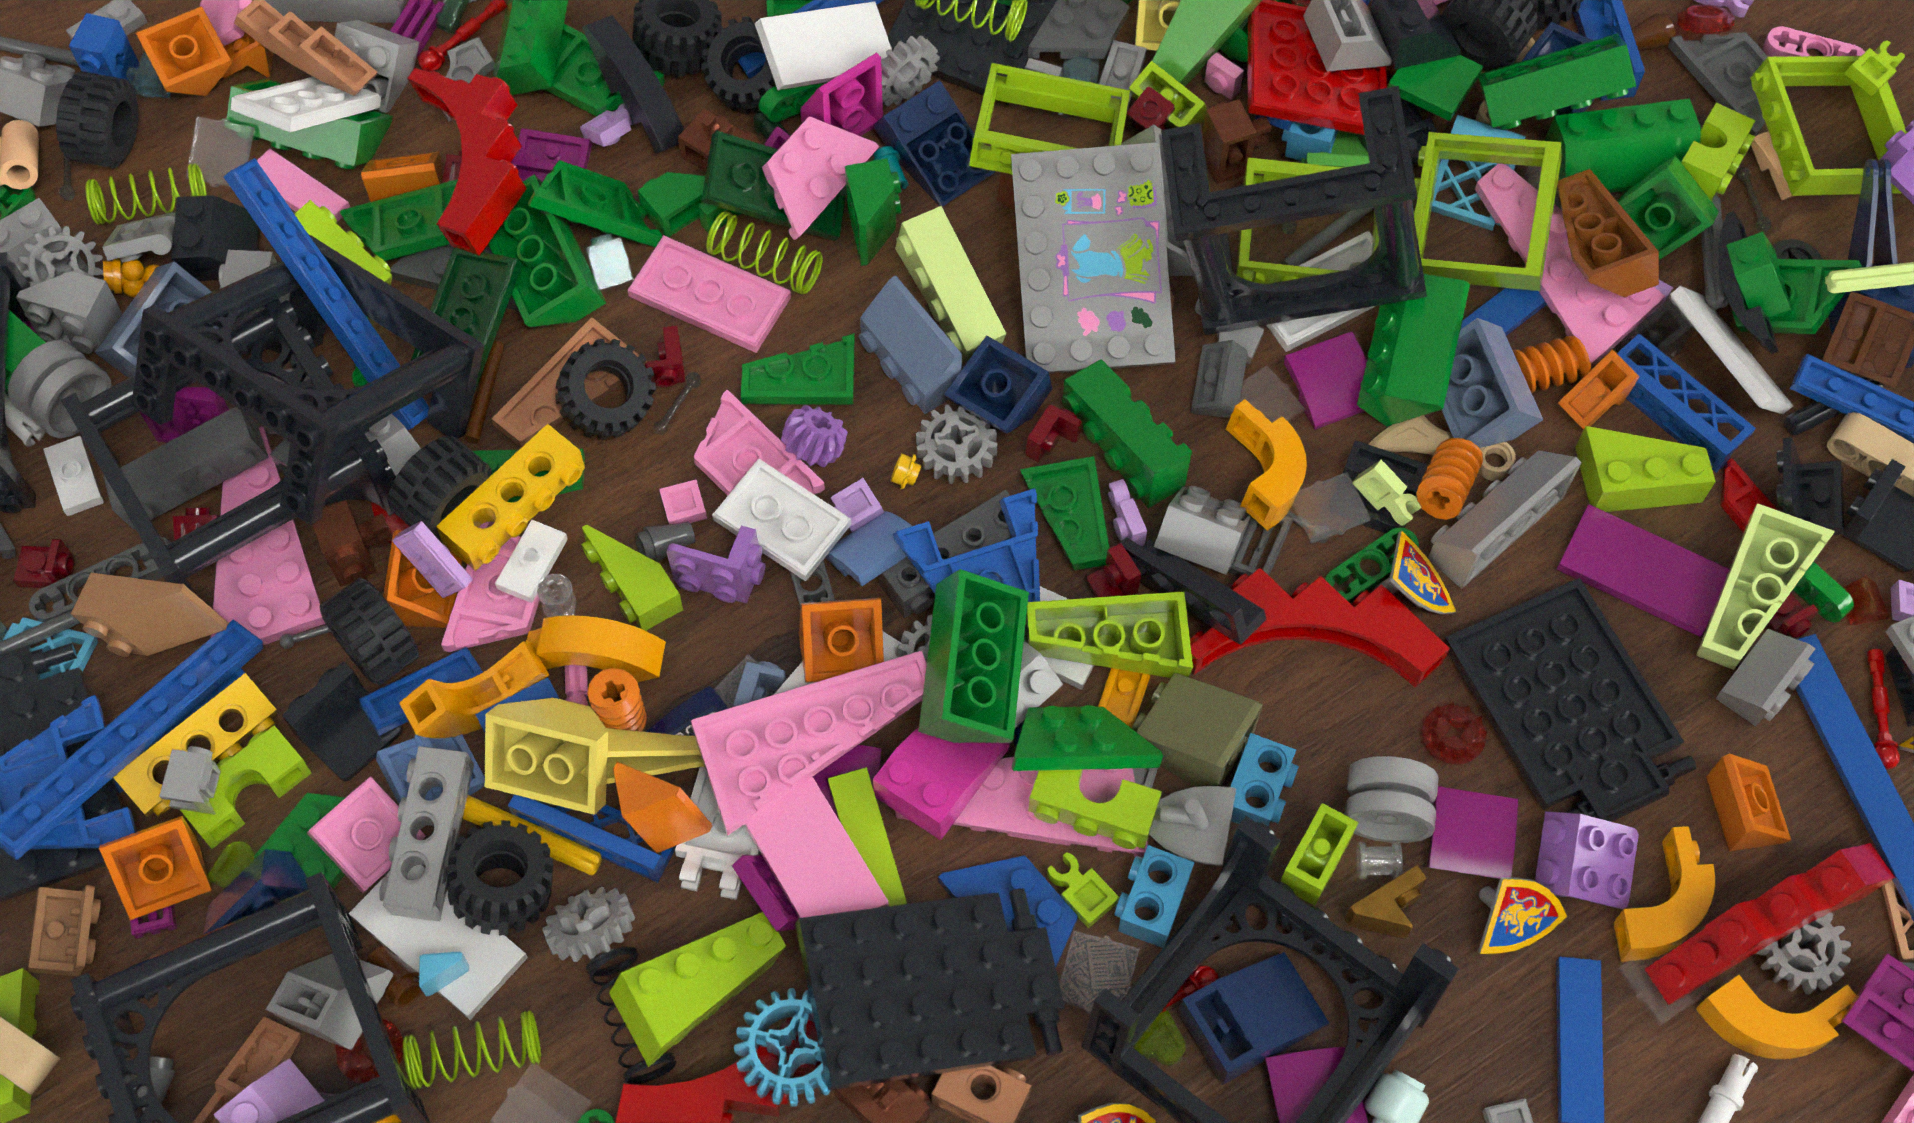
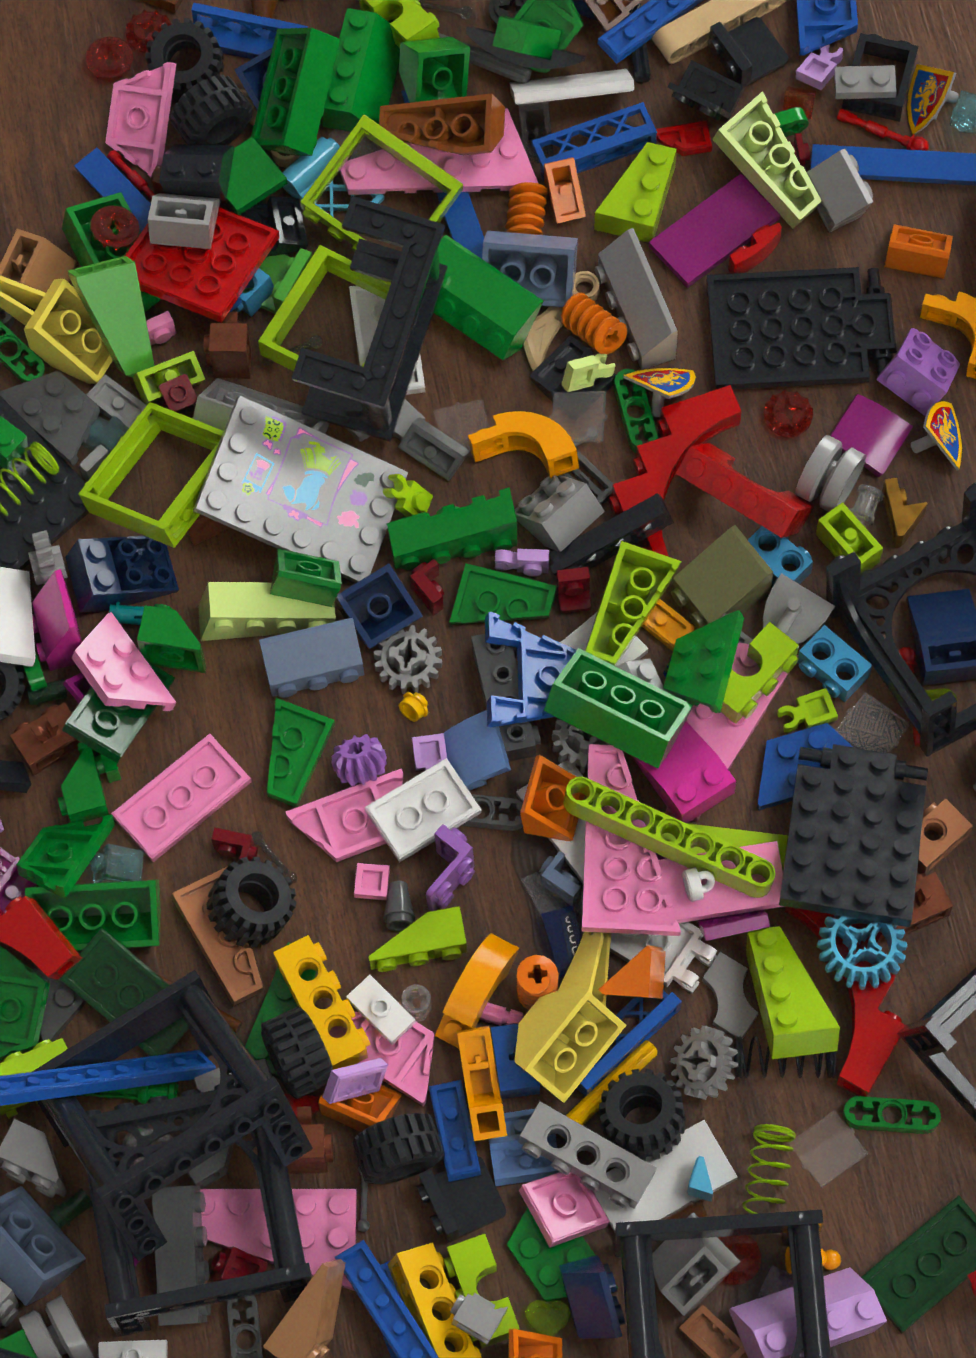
camera: 65 degrees left, 5 degrees up
(706, 916) = (726, 981): none -> light grey tile
(728, 231) = (202, 712): lime piece -> none
(789, 823) = (693, 886): none -> white tile
(834, 789) = (660, 823): none -> lime beam
(994, 296) = (306, 578): none -> green slope
(1145, 376) = (409, 494): none -> lime plate
(1319, 663) = (712, 472): none -> red arch
(1325, 236) = (338, 319): dark grey bar -> none
(1328, 378) = (468, 370): magenta slope -> none
(1656, 626) = (763, 243): none -> red slope

